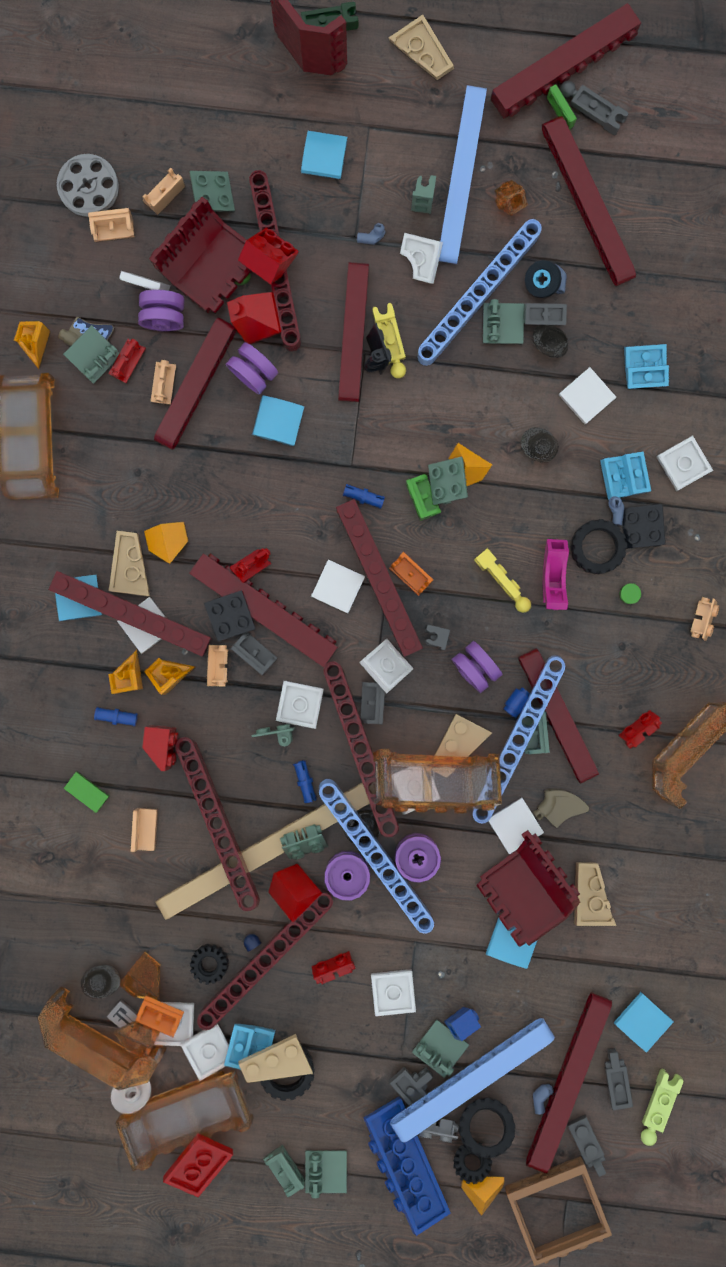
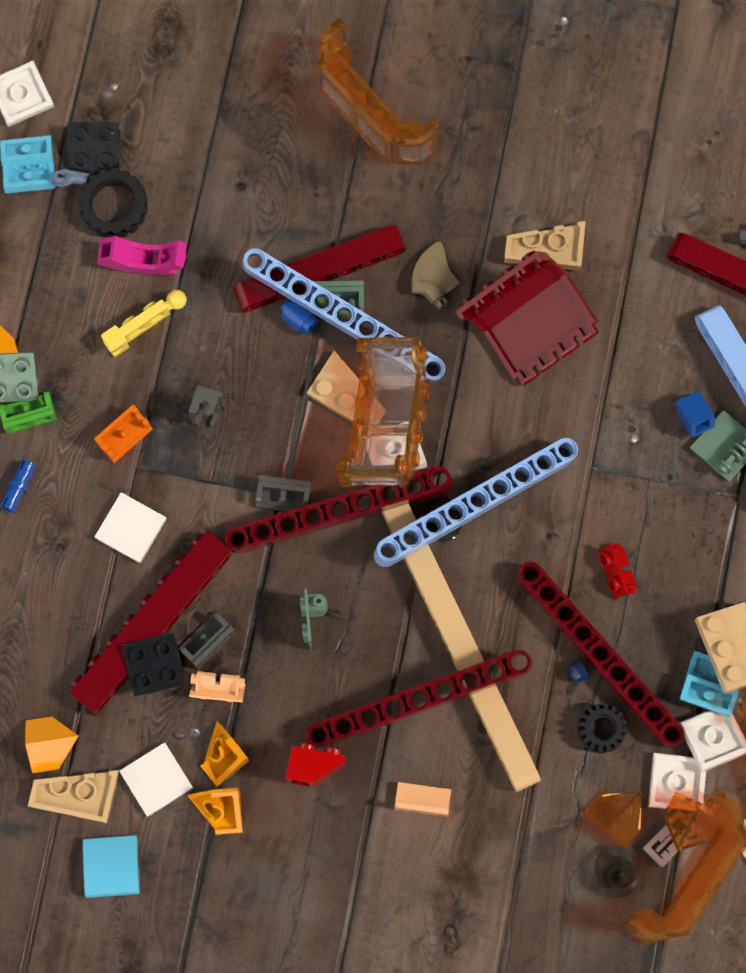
camera: 85 degrees left, 10 degrees down
(86, 792) = (368, 873): bright green tile -> none
(115, 716) = (272, 826): blue pin -> none
(129, 613) = (138, 793): dark red brick -> none
(159, 1016) = (663, 793): orange hinge -> none
(251, 564) = (90, 632): red hinge -> none
(293, 891) = (515, 611): red slope -> none
(299, 704) = (277, 588): white tile -> none
(305, 781) = (376, 588): blue pin -> none
(314, 843) = (456, 583): sand green hinge -> none
(346, 887) = (503, 526): medium lavender wheel -> none
(379, 578) = (124, 473): dark red brick -> none
(386, 665) = (237, 472): white tile -> none
(393, 992) = (653, 498): white tile -> none
(420, 869) = (487, 438): medium lavender wheel -> none
(473, 669) = (248, 359): medium lavender wheel -> none
(505, 948) = (603, 351): medium azure slope -> none
(512, 822) = (450, 335): white tile -> none
(630, 593) = (176, 171): bright green tile -> none
(643, 1022) = (706, 198): medium azure slope -> none
(647, 723) = (338, 163): red hinge -> none
(707, 611) = (224, 87): light nougat hinge -> none

